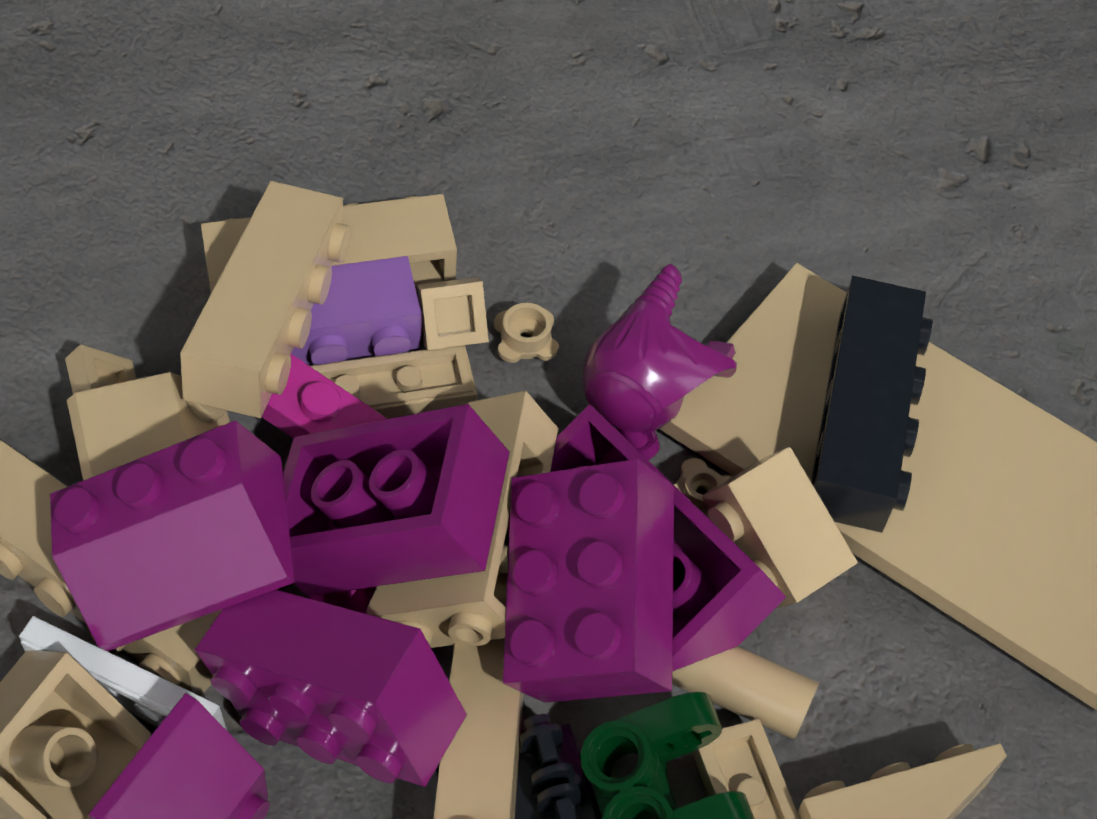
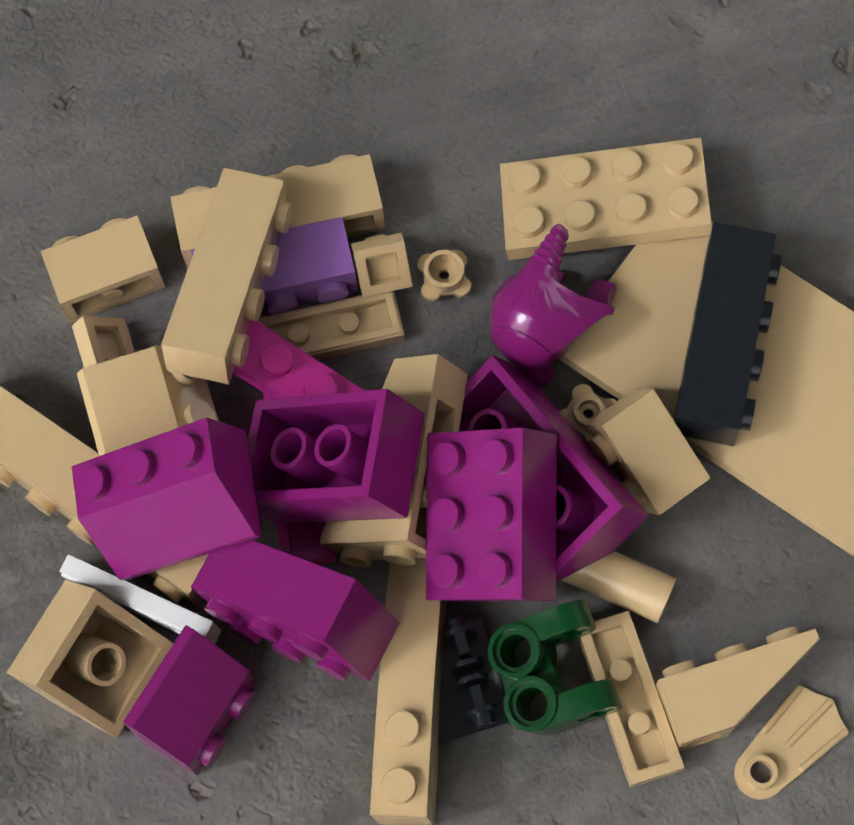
camera: 10 degrees right, 15 degrees up
(111, 300) = (102, 268): none -> tan brick
(725, 258) = (607, 197): none -> tan plate

